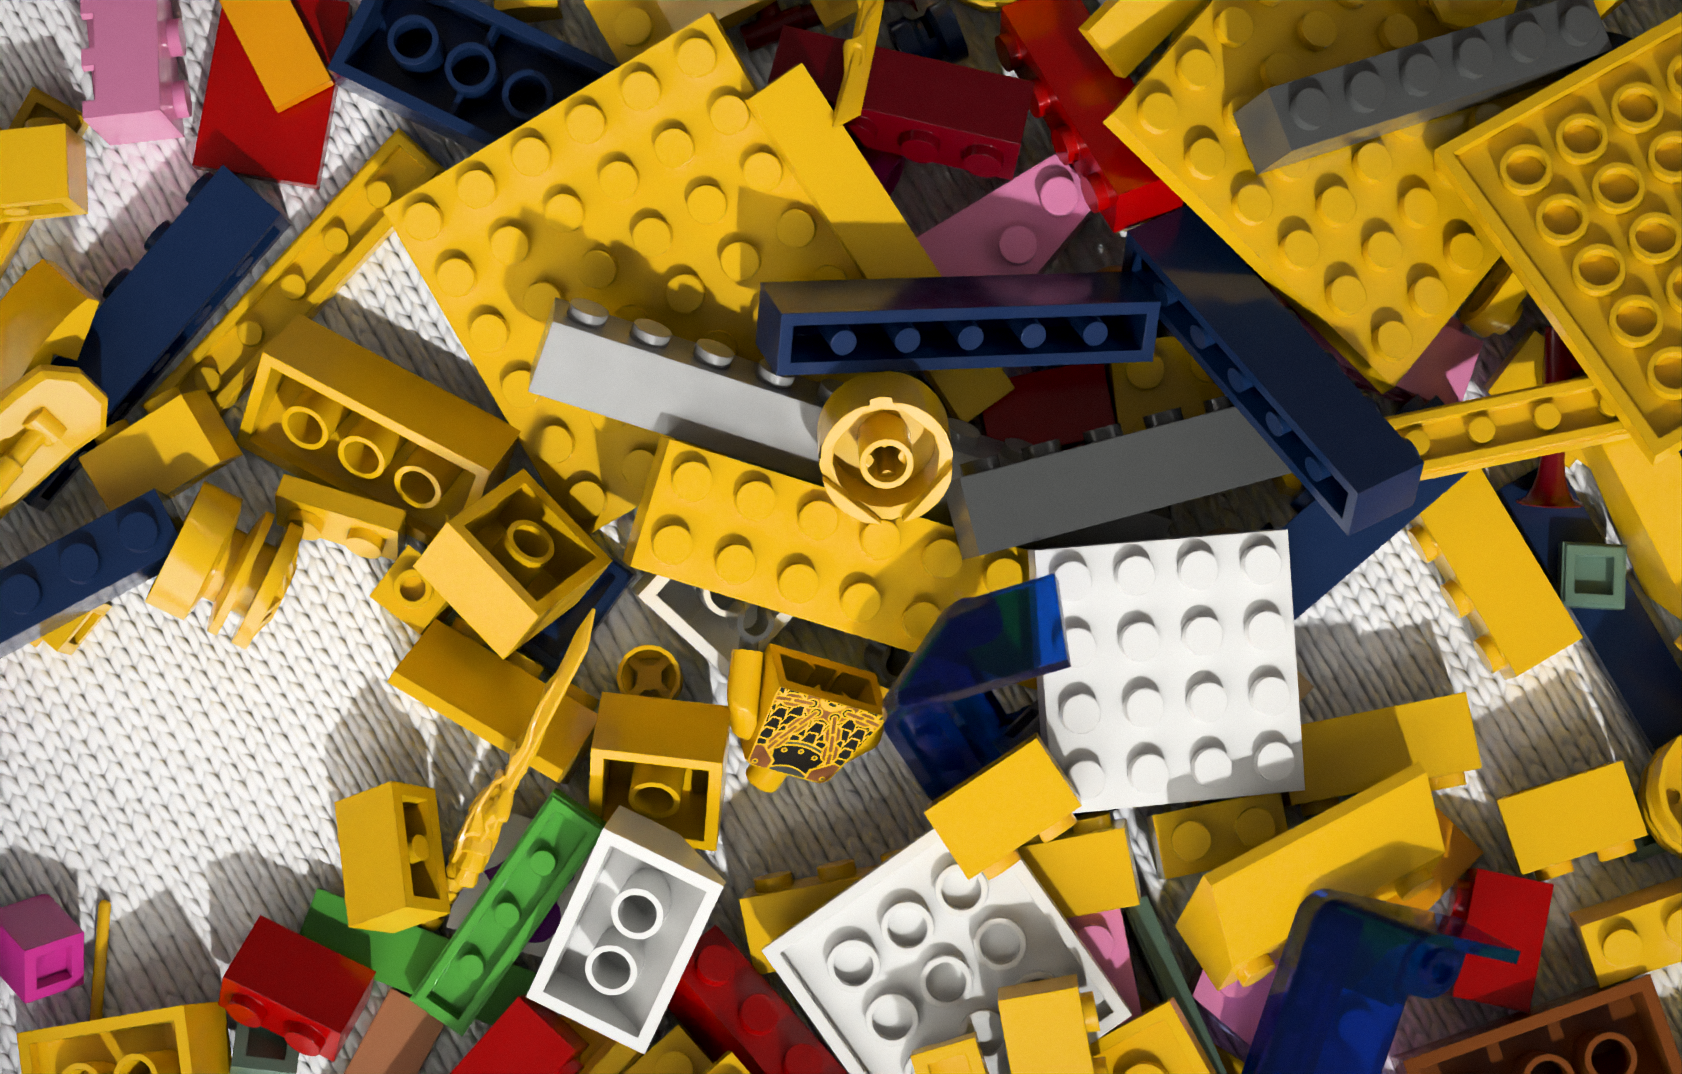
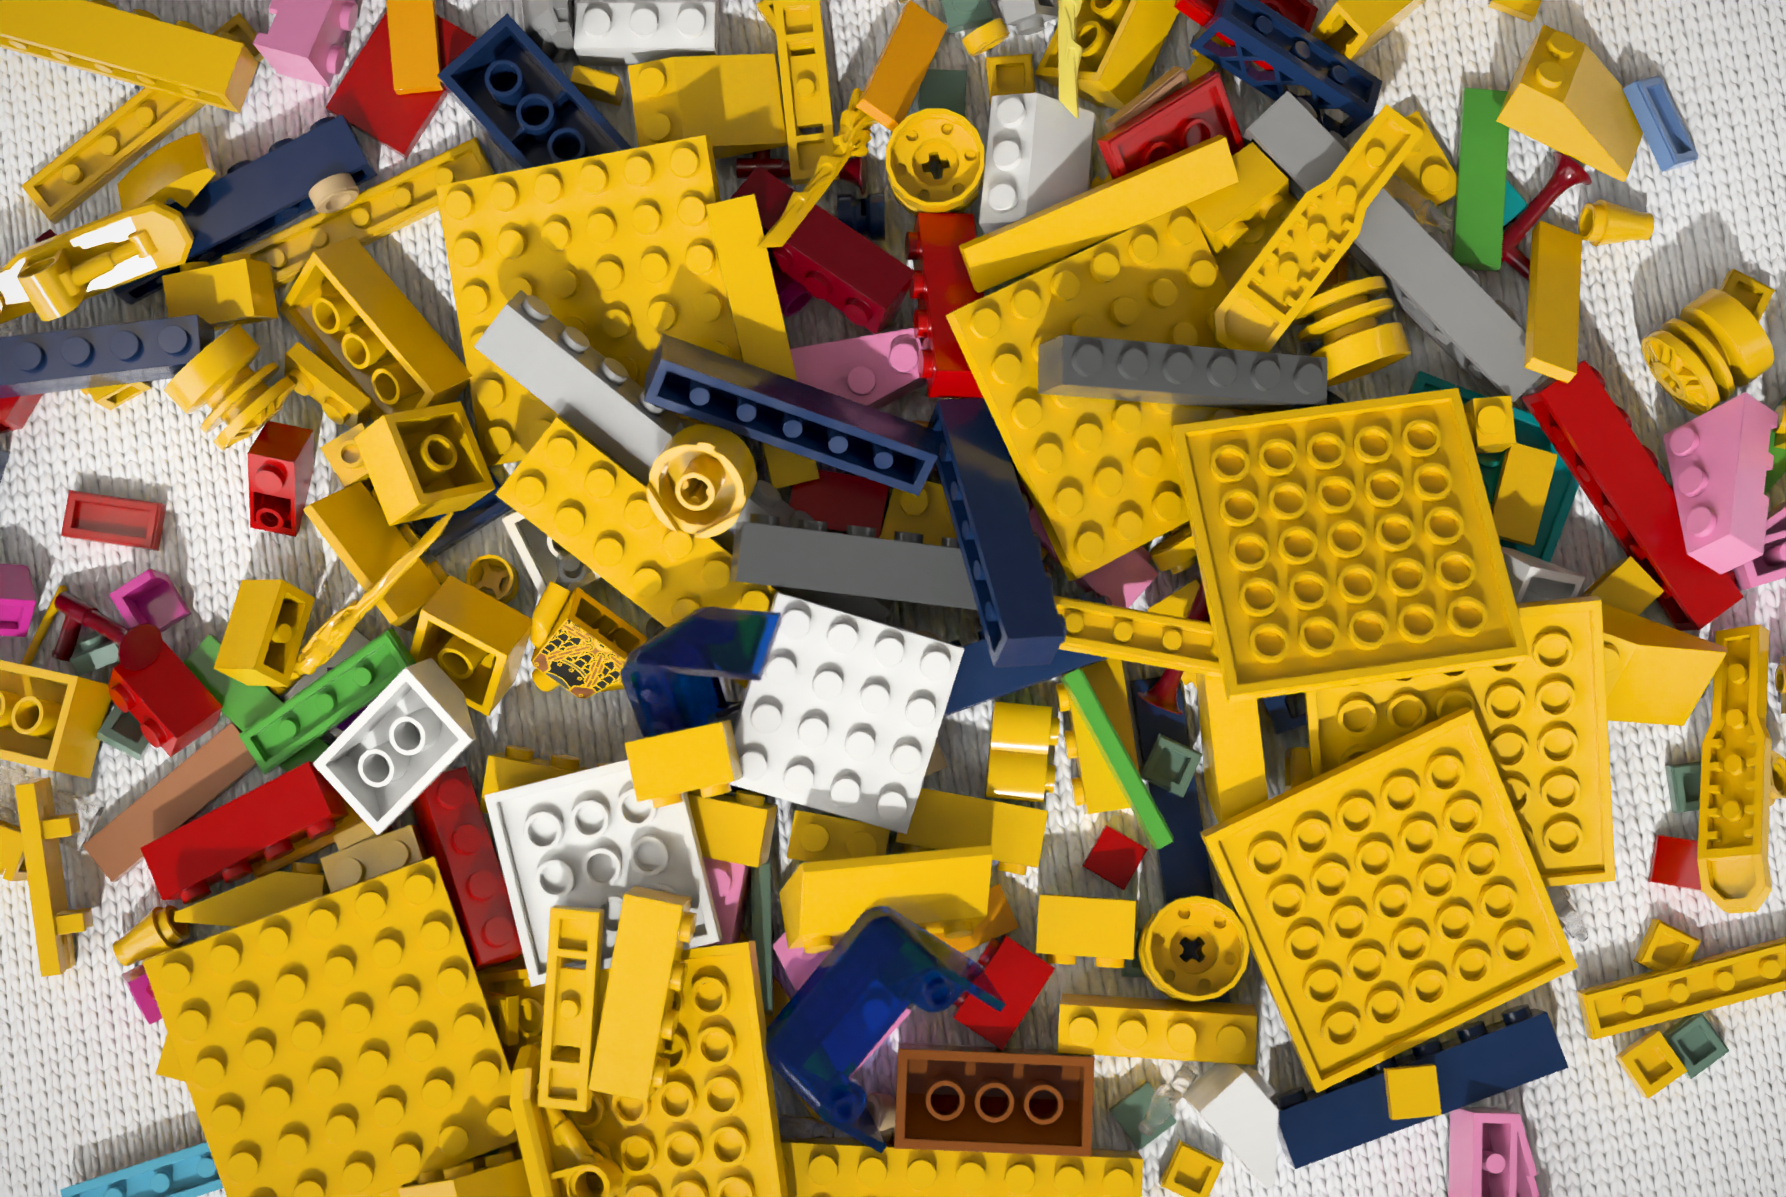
camera: 20 degrees right, 0 degrees up
(134, 792) = (113, 520): none -> red tile
(187, 963) = (93, 653): none -> sand green plate
(228, 879) = (150, 600): none -> dark pink panel
(242, 936) = (136, 645): none -> dark red piece
(252, 268) = (333, 193): none -> tan tile
(327, 655) = (280, 477): none -> red slope
(1397, 633) = (1020, 752): none -> yellow brick
(1530, 593) = (1117, 759): none -> bright green tile
(1566, 718) = (1114, 857): none -> red tile

